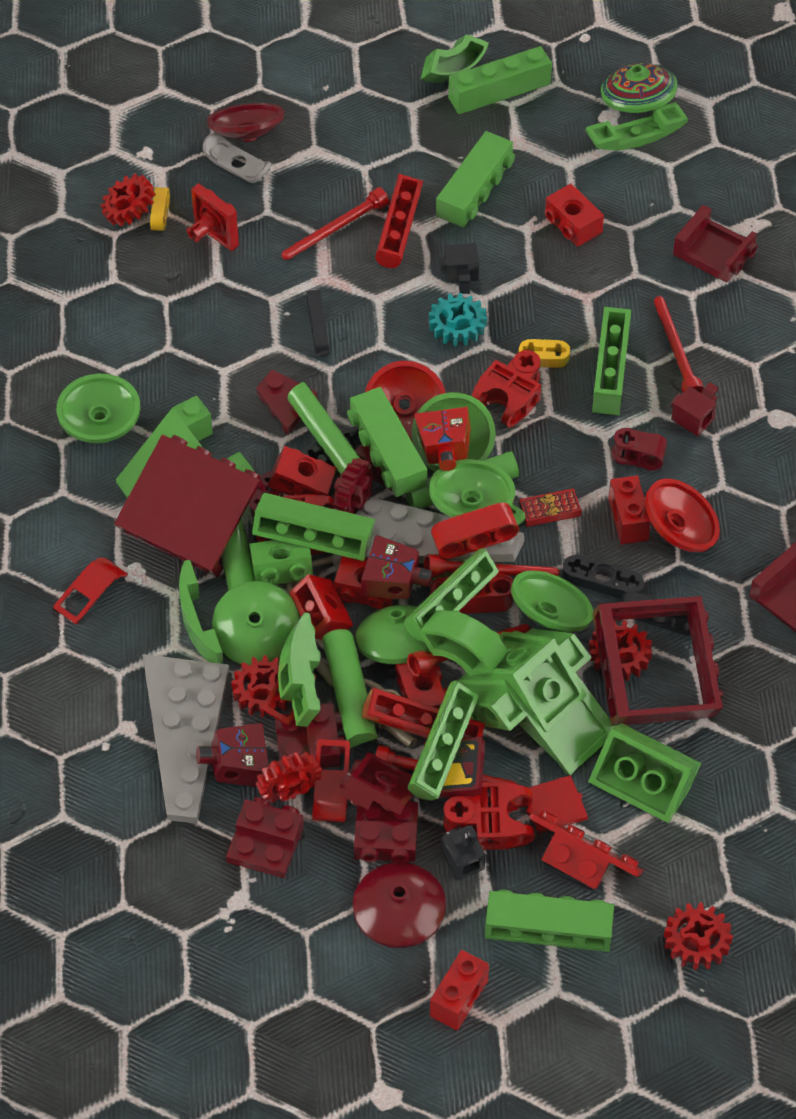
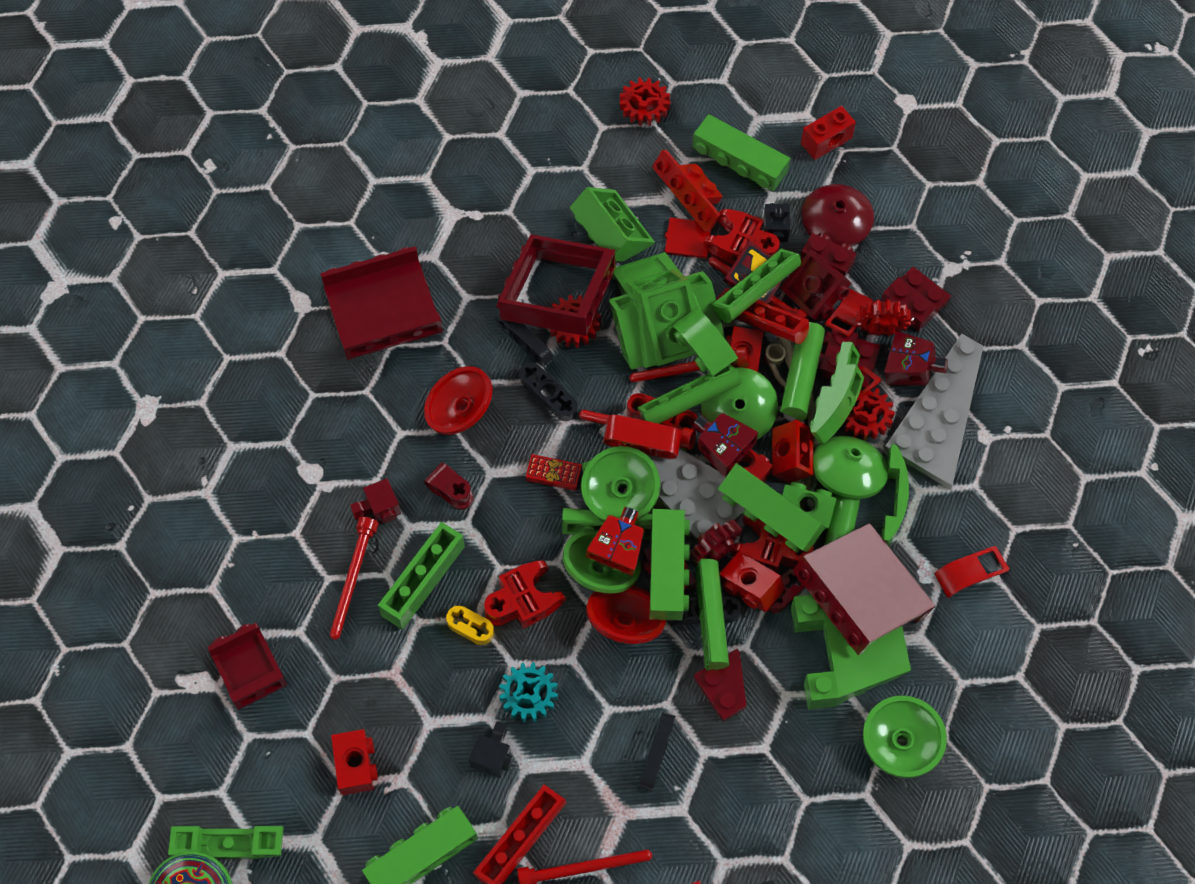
camera: 155 degrees left, 10 degrees up
(551, 601) = (597, 367): bright green dish -> none
(629, 509) = (494, 432): red brick -> none

